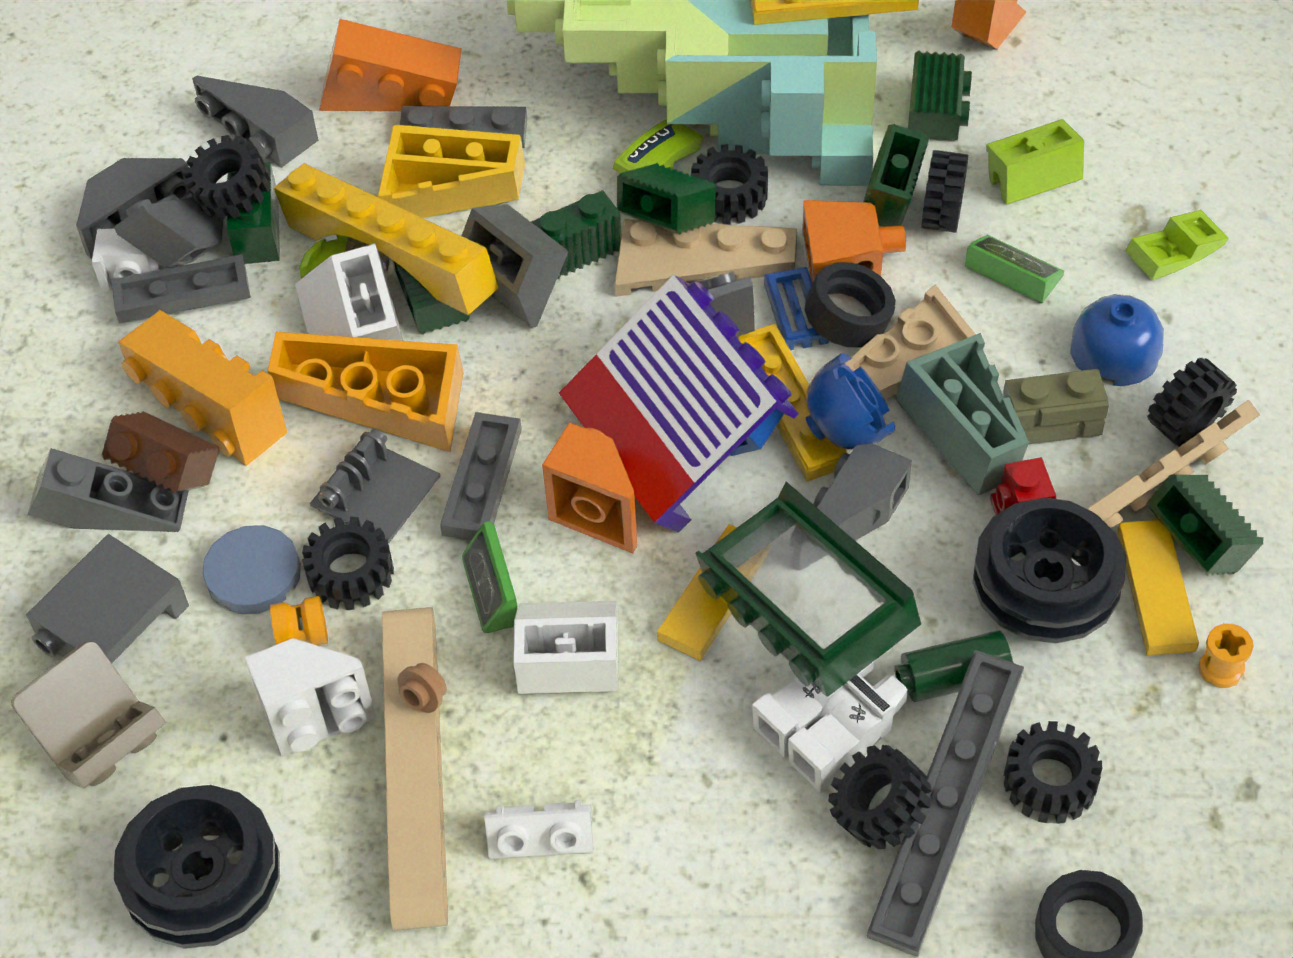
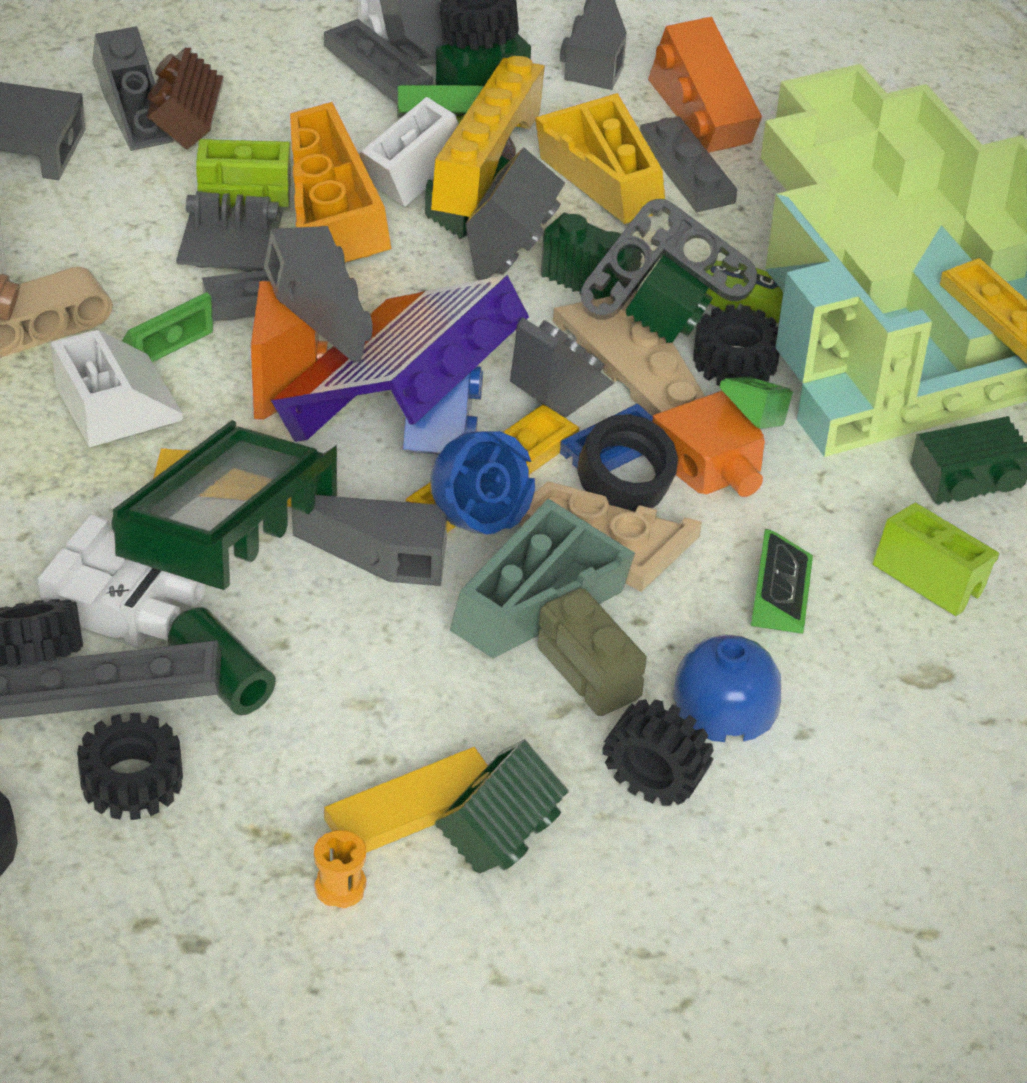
camera: 60 degrees right, 10 degrees down
(205, 387) = (273, 85): light orange wedge -> none
(251, 569) = (107, 196): sand blue tile -> none
(287, 262) = (451, 97): none -> bright green slope
(287, 623) = (57, 233): light orange wheel -> none
(310, 441) = (245, 169): none -> lime brick
(342, 541) = (137, 242): black tyre -> none
(599, 417) = (314, 284): none -> dark grey slope
(634, 165) = (670, 244): none -> dark grey beam
(824, 187) = (759, 400): none -> bright green slope
(896, 174) = (819, 448): dark green brick -> none
(944, 191) = (815, 470): black tyre -> none
(1021, 483) = (455, 642): red brick -> none
(1036, 593) = (339, 689): black wheel -> none
(1181, 243) = (920, 720): lime slope -> none
(1205, 445) = (588, 768): tan wing -> none

